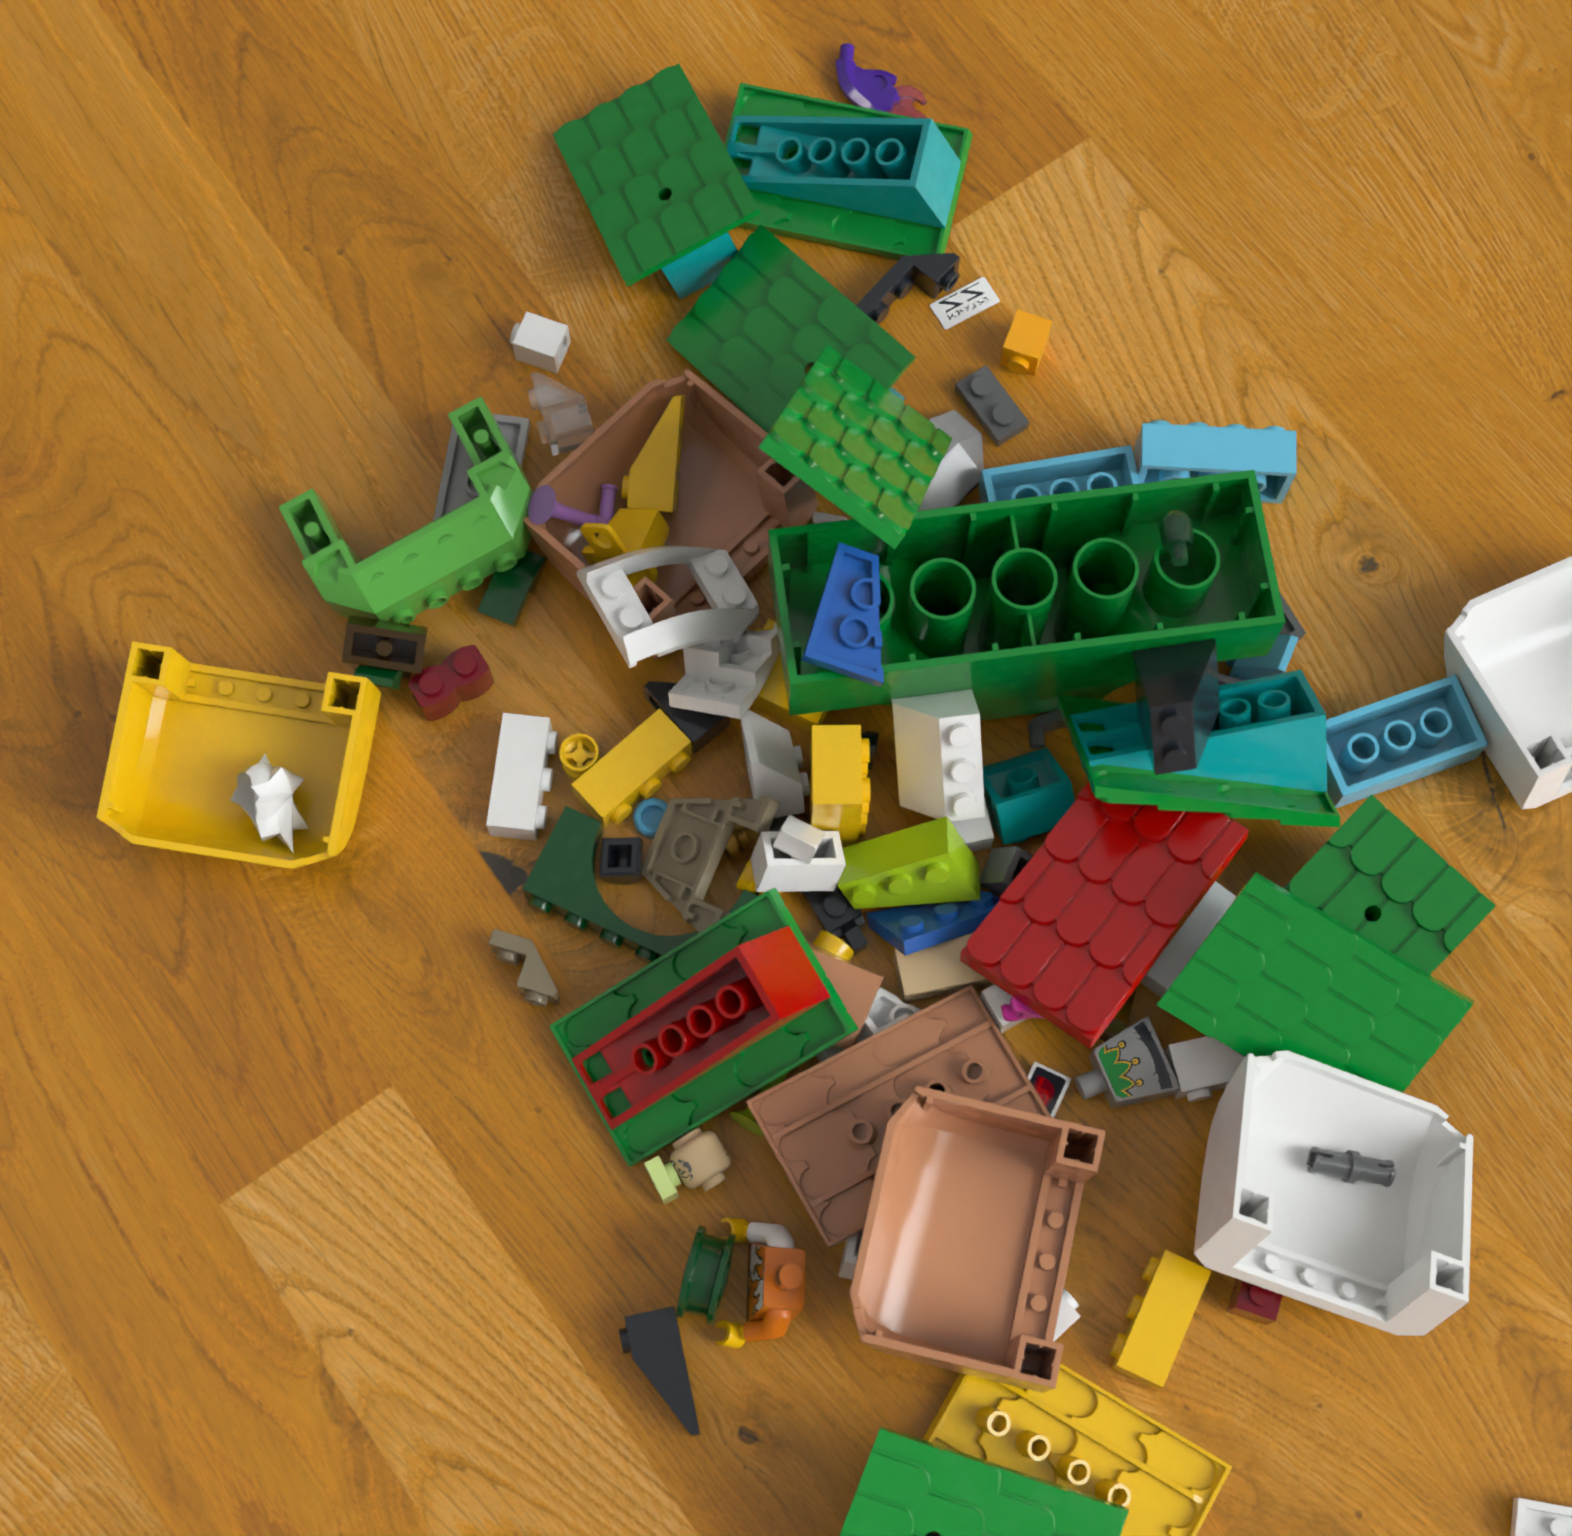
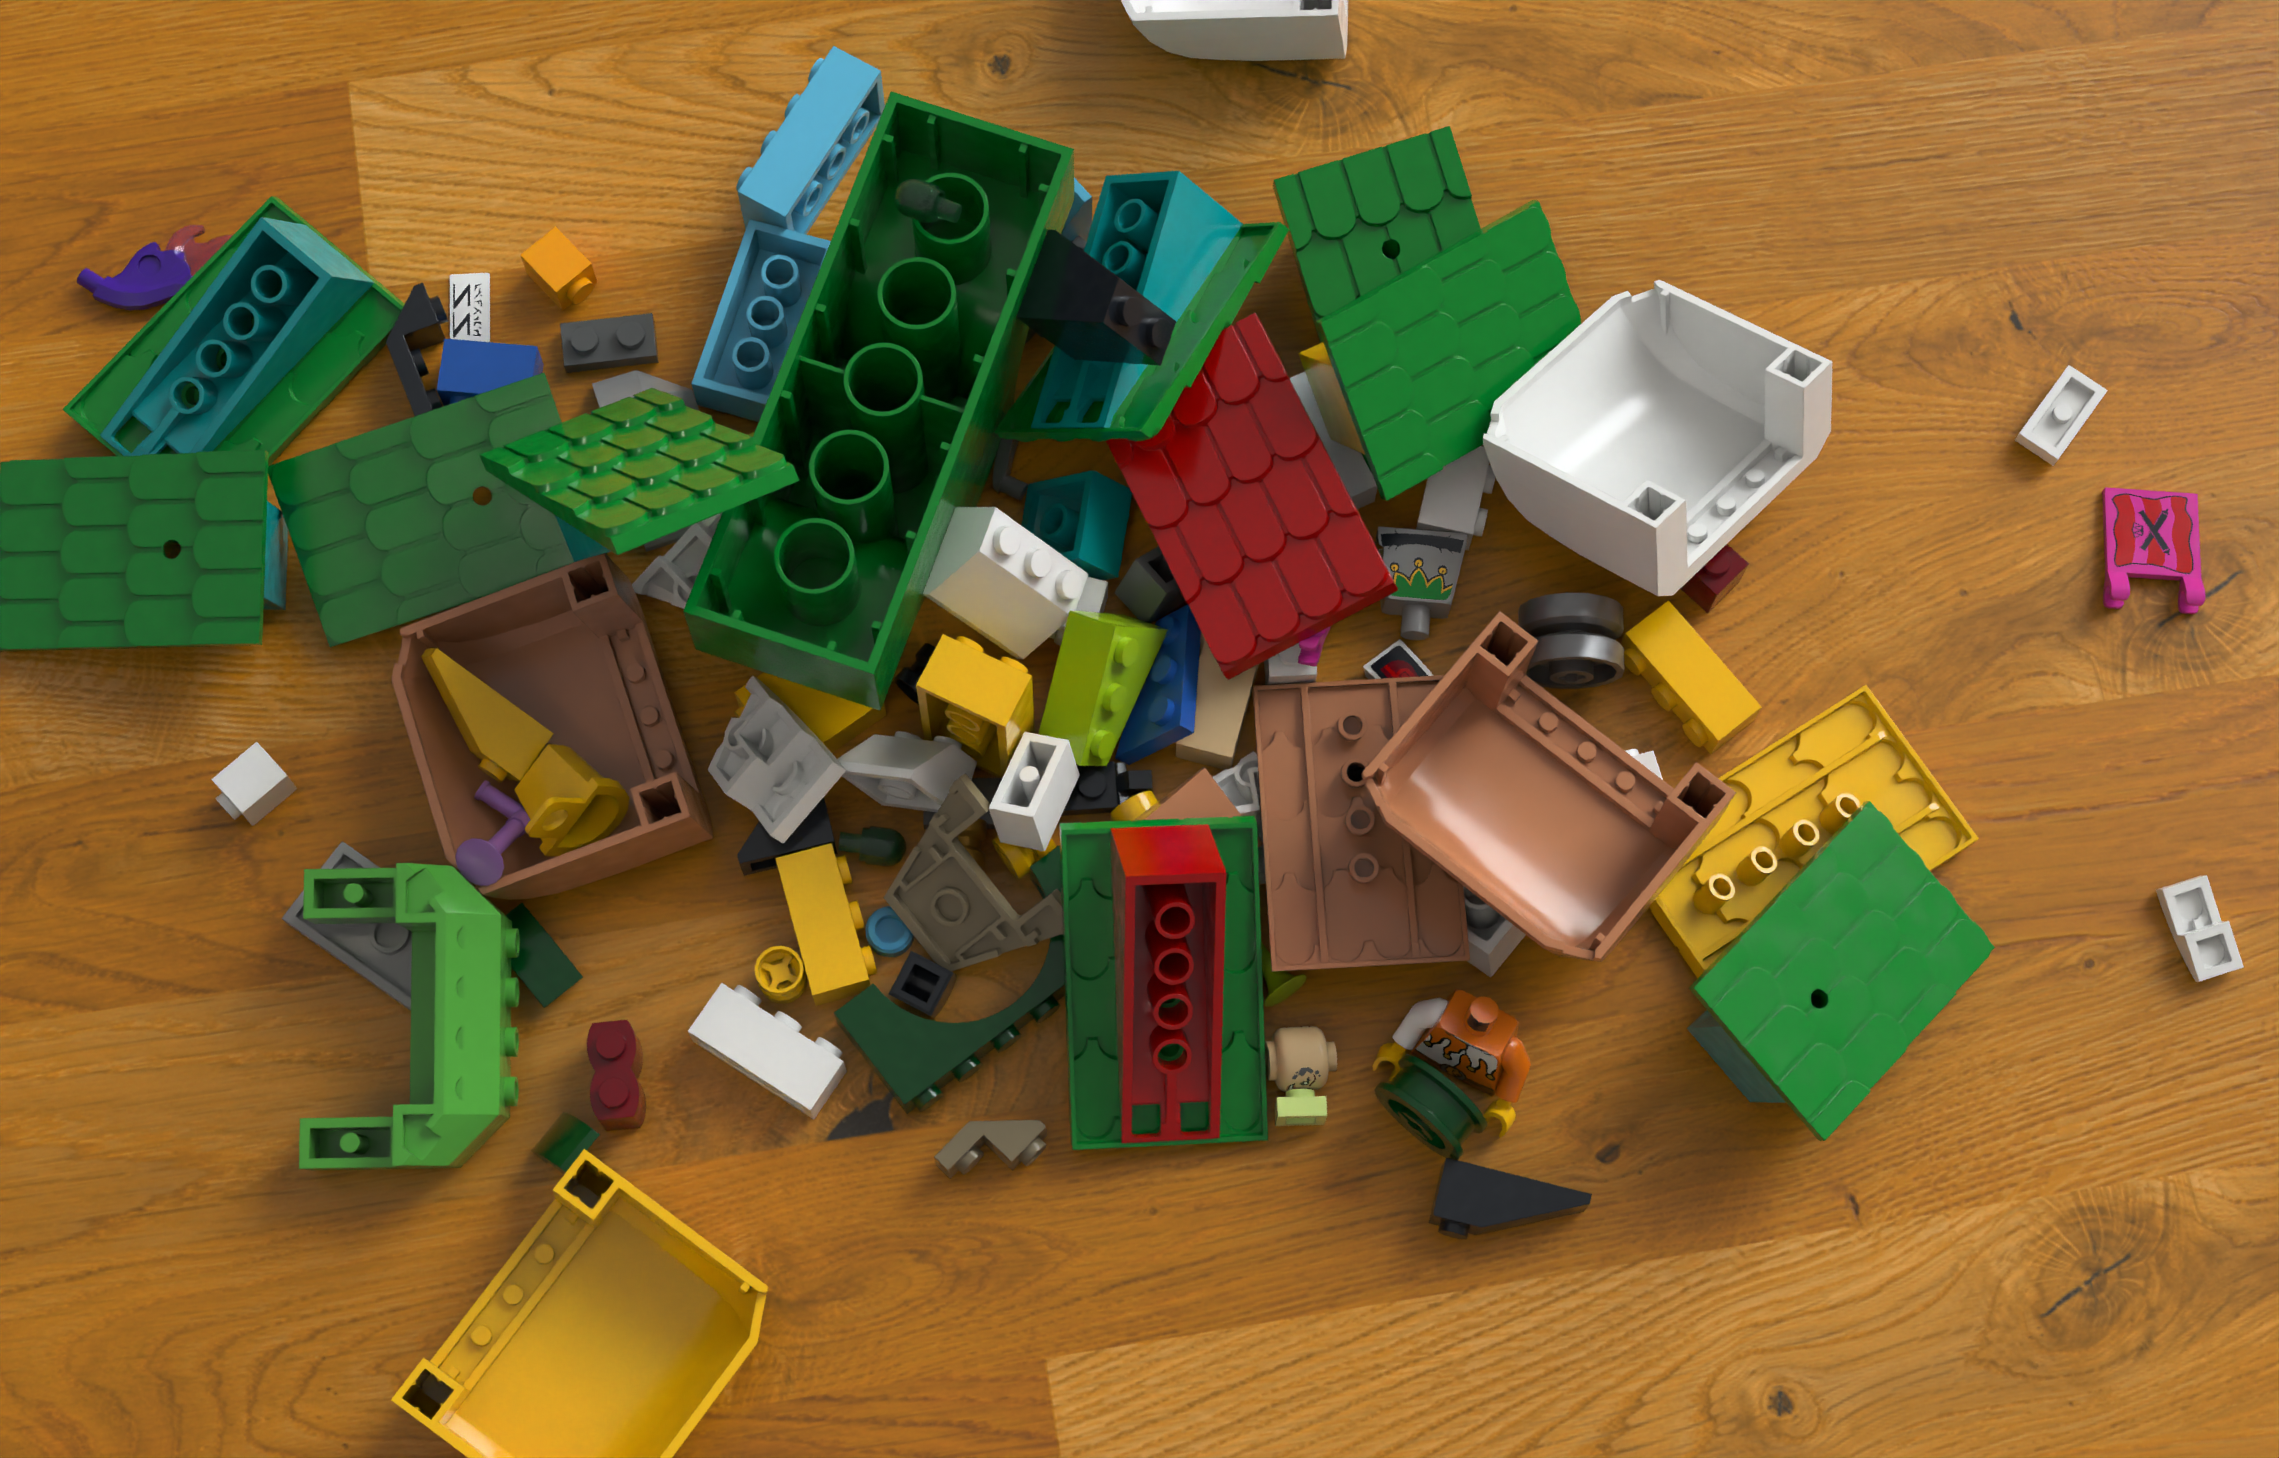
camera: 65 degrees left, 0 degrees up
(268, 800) = (652, 1340): white hair -> none
(384, 644) = (540, 1121): dark brown brick -> none
(563, 414) = (356, 801): clear slope -> none
(629, 622) = (670, 827): white wedge -> none
(710, 775) = (875, 845): none -> cylinder
(799, 839) = (1019, 771): white slope -> none
(847, 622) = (839, 580): blue wing -> none
(921, 333) = (480, 366): none -> blue brick
(1135, 1209) = (1574, 639): none -> flat silver wheel
(1351, 1166) = (1629, 412): dark grey pin -> none
(1400, 740) = (1216, 120): medium azure brick -> none

